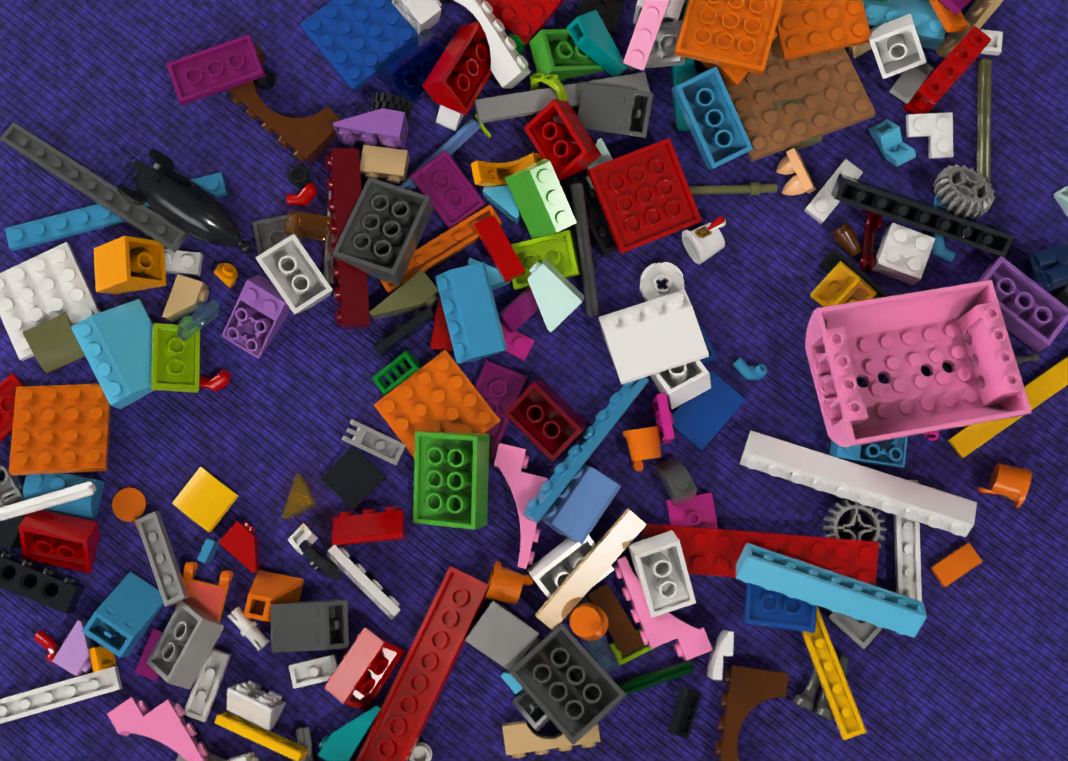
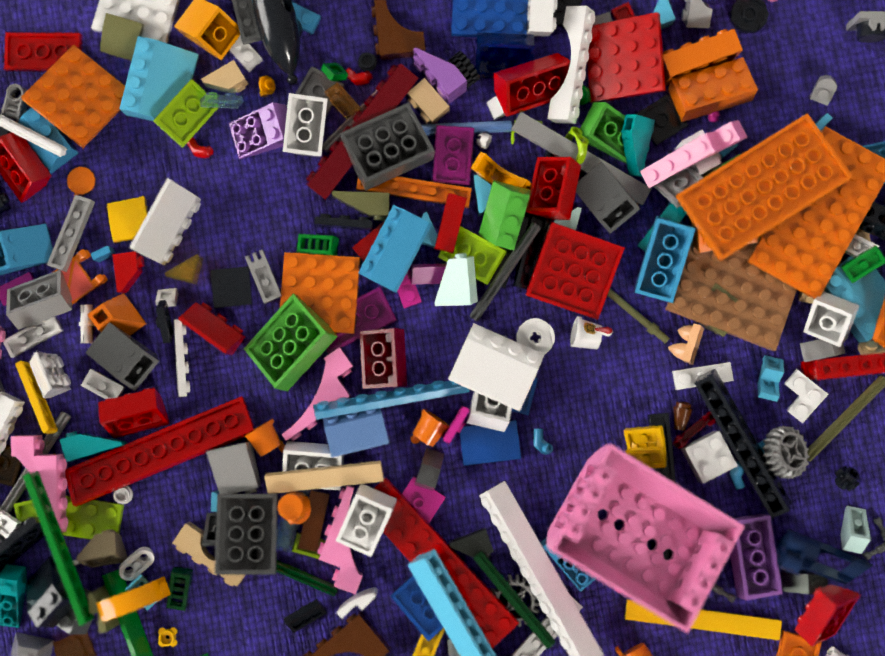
camera: 45 degrees right, 5 degrees up
(244, 470) = (166, 222): none -> white slope
(278, 208) = (334, 71): none -> green plate
(463, 155) = (484, 140): none -> white hinge
(775, 509) = (473, 543): none -> pearl dark grey slope
(855, 525) = (514, 599): none -> dark green axle
(1033, 169) = (847, 478): none -> black gear

